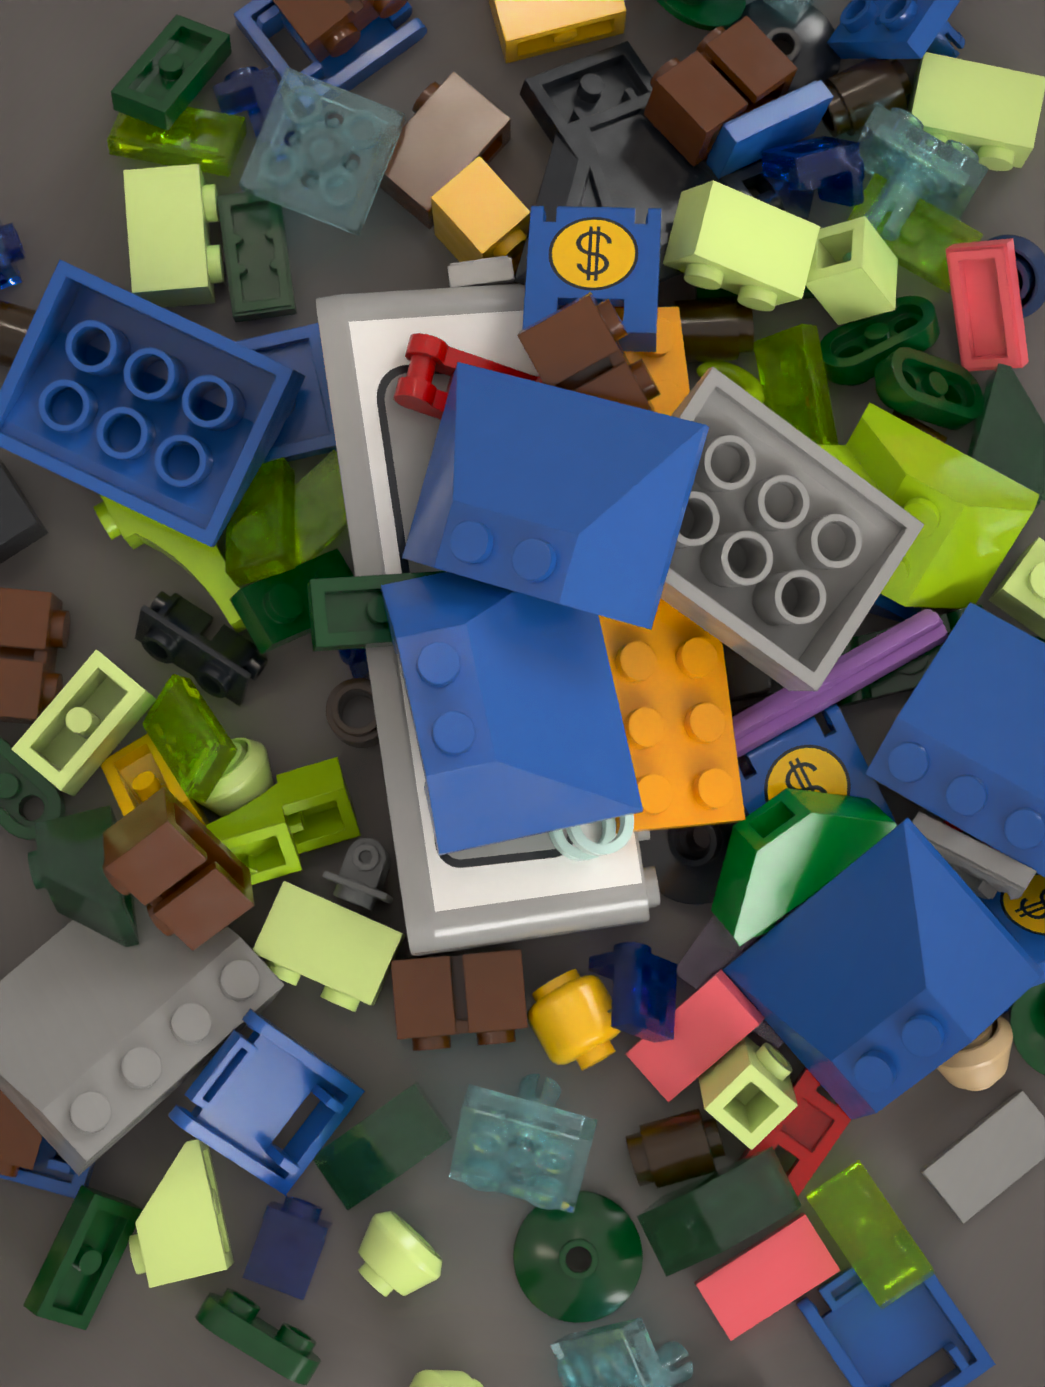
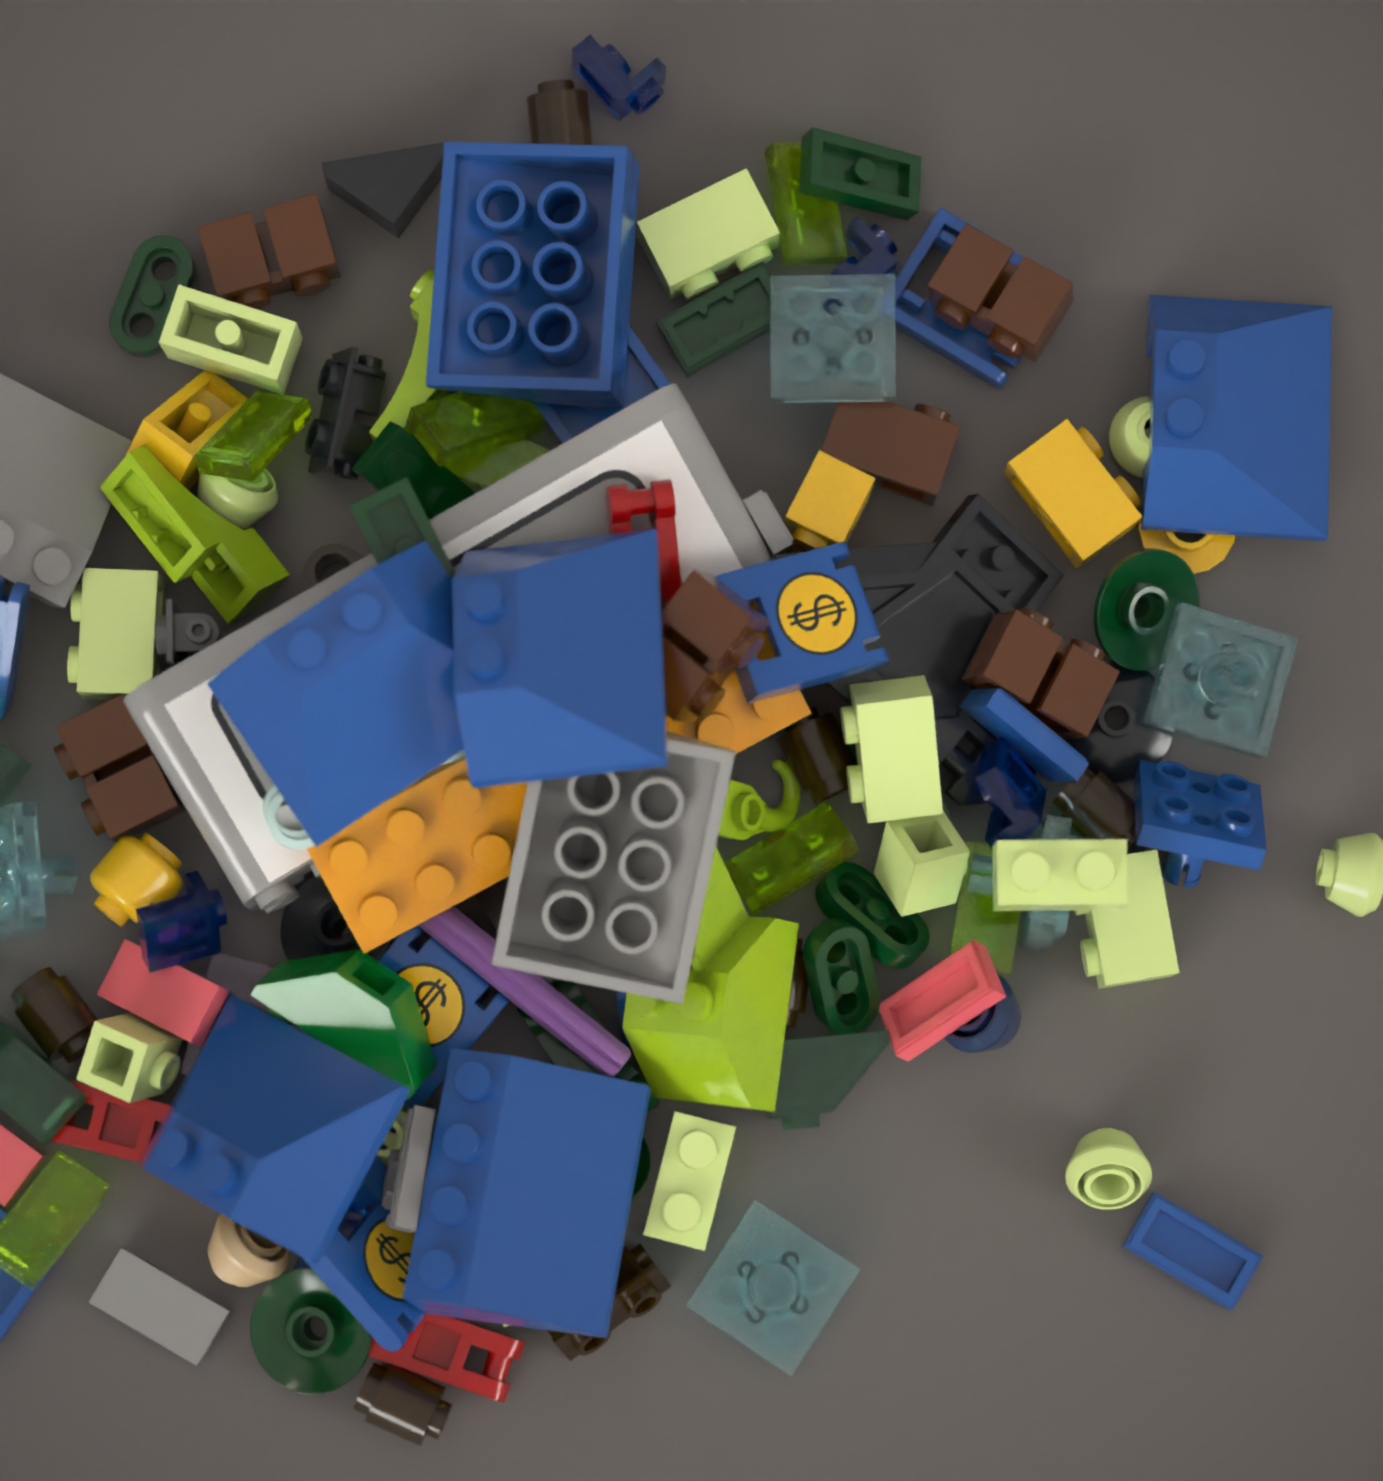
camera: 65 degrees right, 0 degrees up
(71, 870) = (100, 396): clear green slope -> none
(176, 870) = (124, 470): reddish brown piece -> none
(935, 127) = (1060, 875): none -> yellowish green brick

